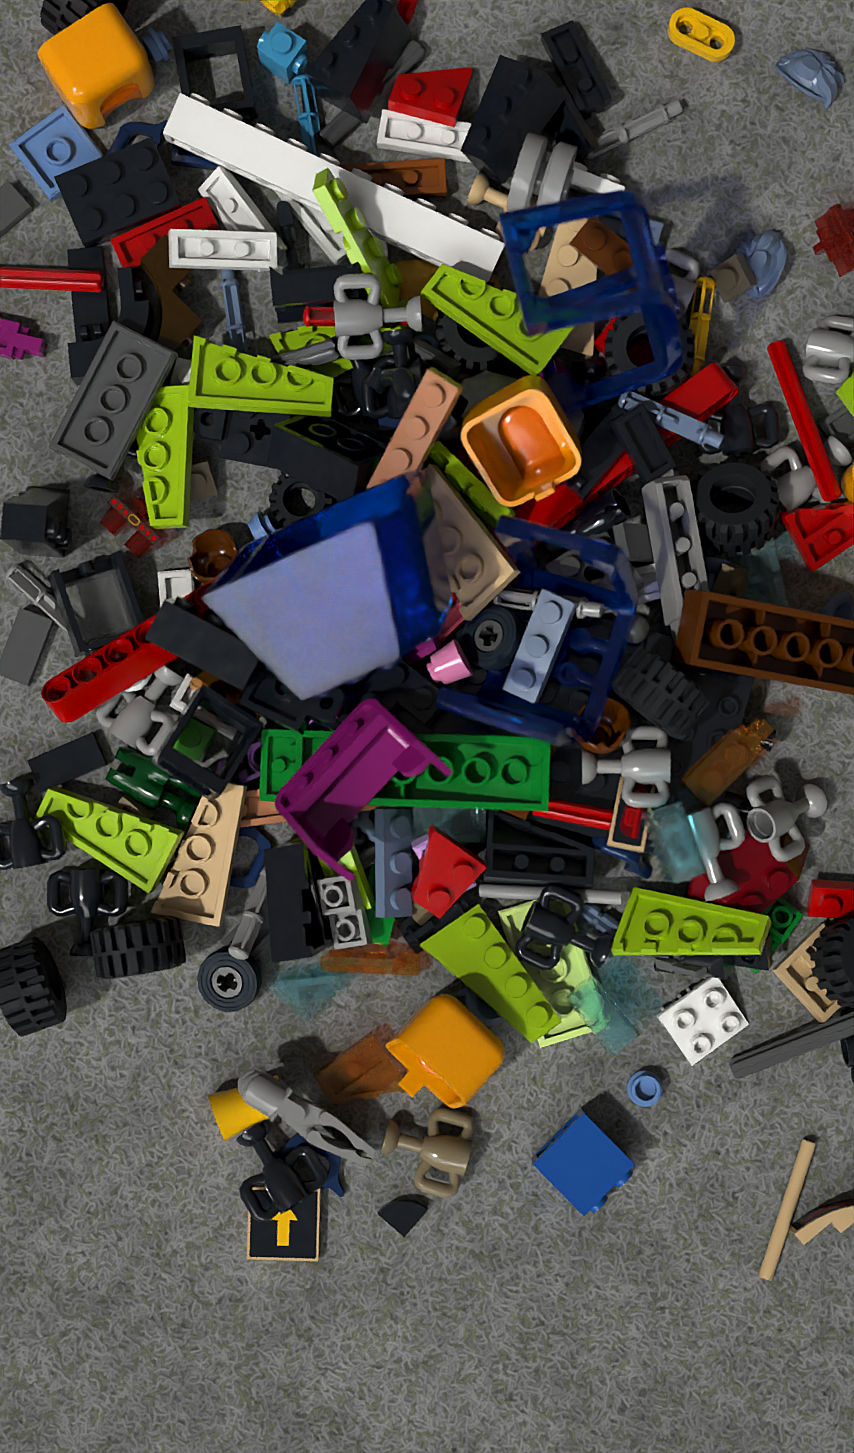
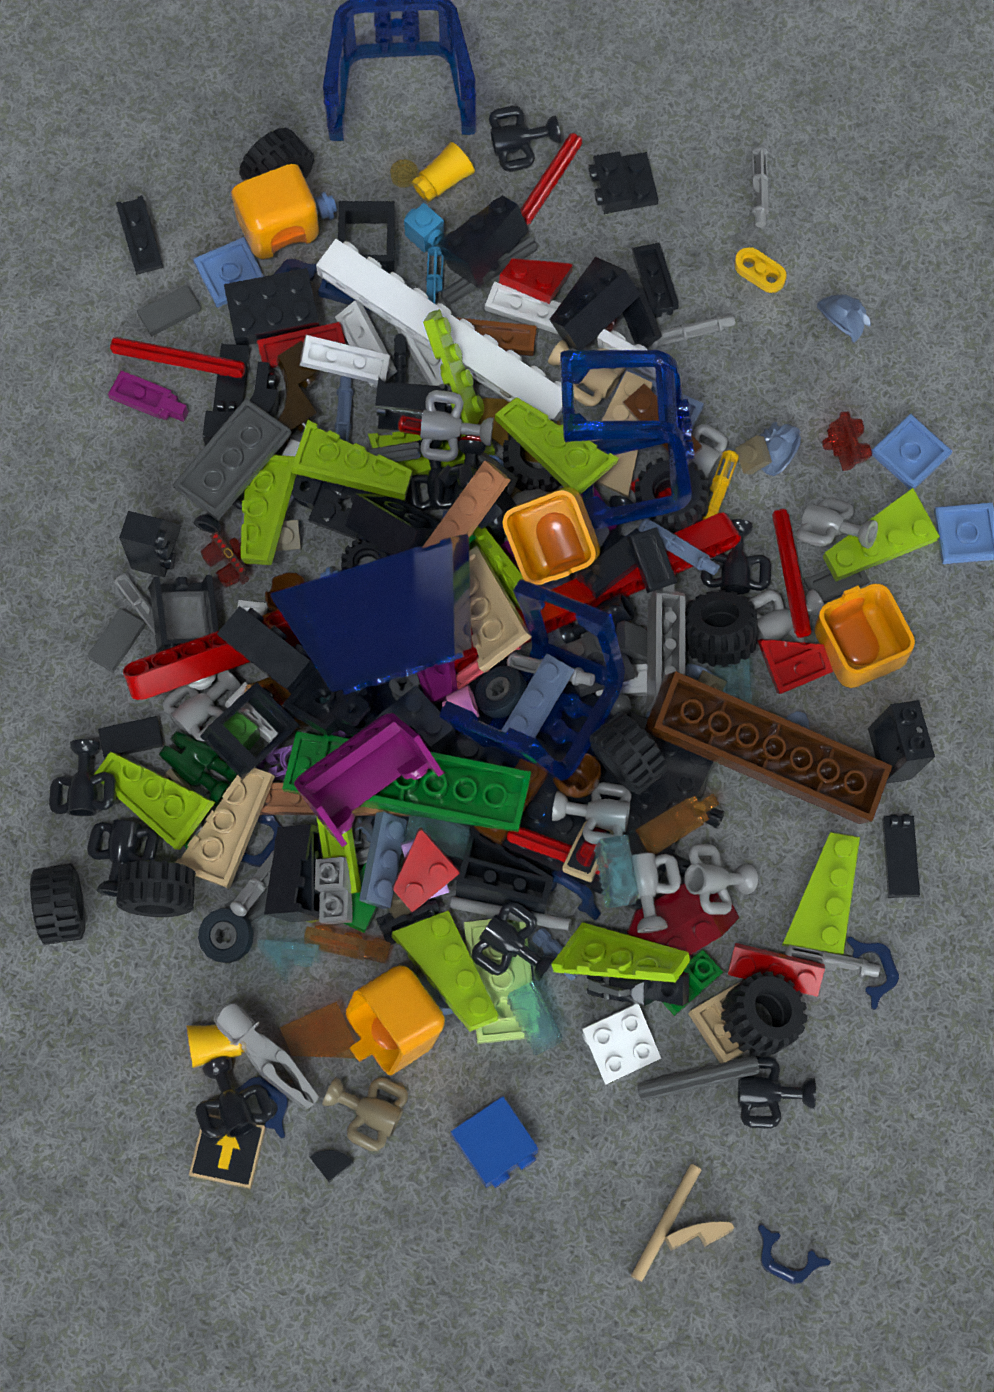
camera: 15 degrees right, 15 degrees down
(542, 178) = (607, 335): light grey wheel -> none
(644, 1088) = (560, 1094): medium blue plate -> none

